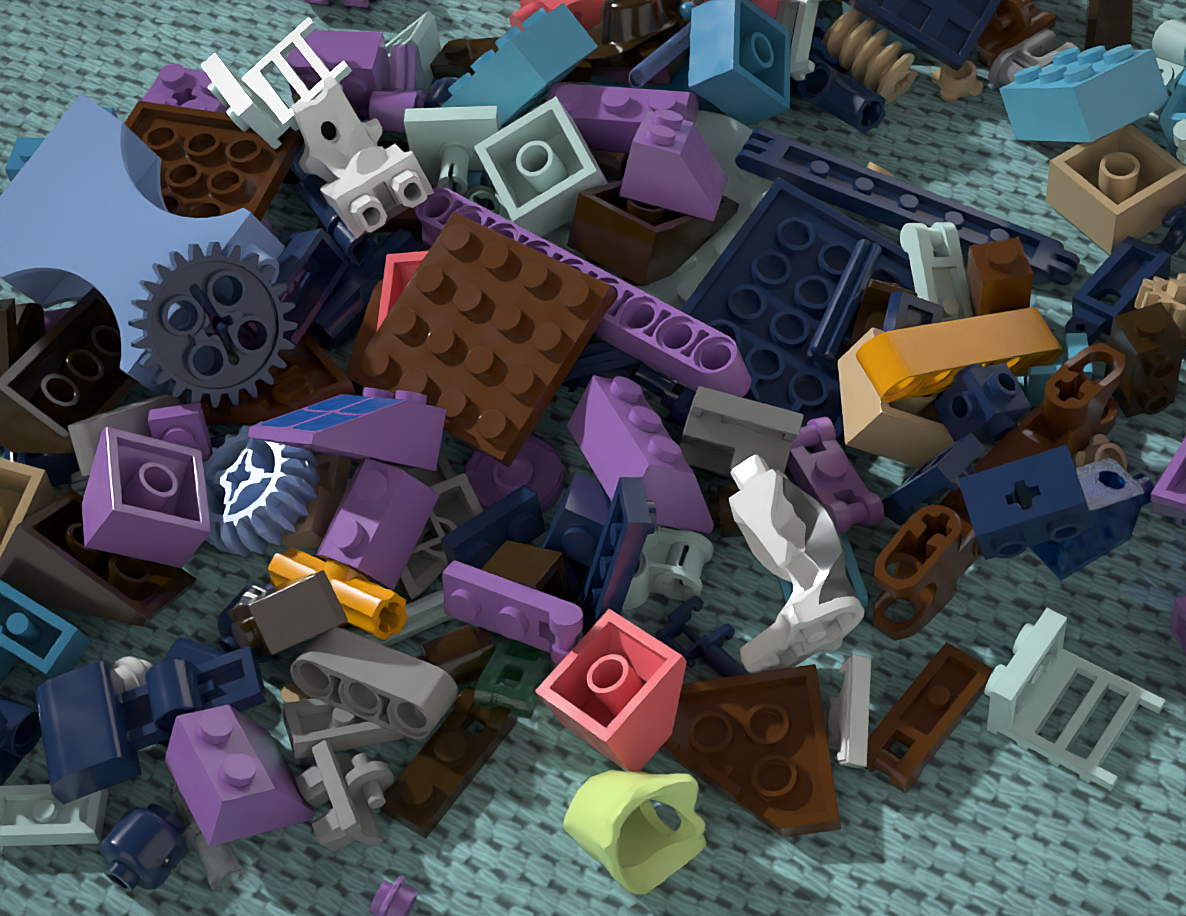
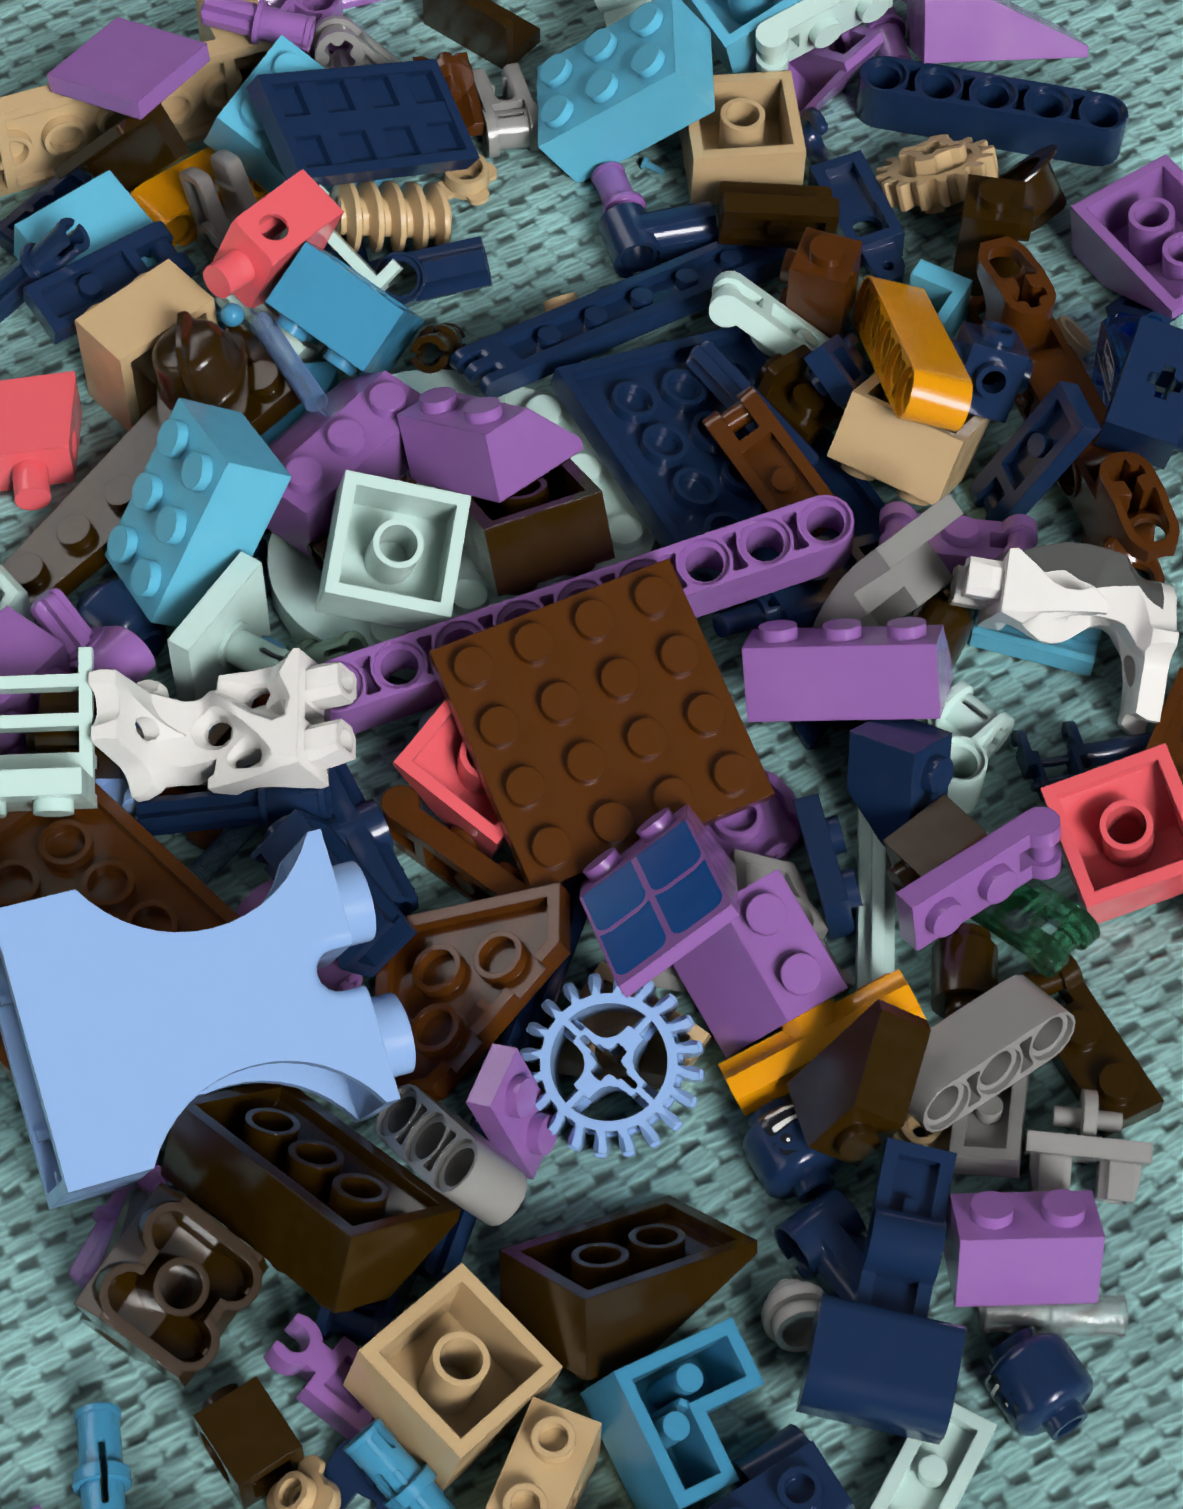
camera: 70 degrees left, 5 degrees up
(145, 499) = (595, 1164): medium lavender slope -> none
(251, 300) = (414, 965): dark blue gear -> none
(618, 551) = (1016, 732): dark blue plate -> none
(773, 121) = (430, 357): none -> dark brown pin
(790, 328) = (766, 456): none -> reddish brown plate
(984, 186) = (643, 238): none -> dark blue piece
(1004, 164) = (613, 186): none -> medium lavender pin
(1055, 235) = (773, 213): none -> dark brown panel

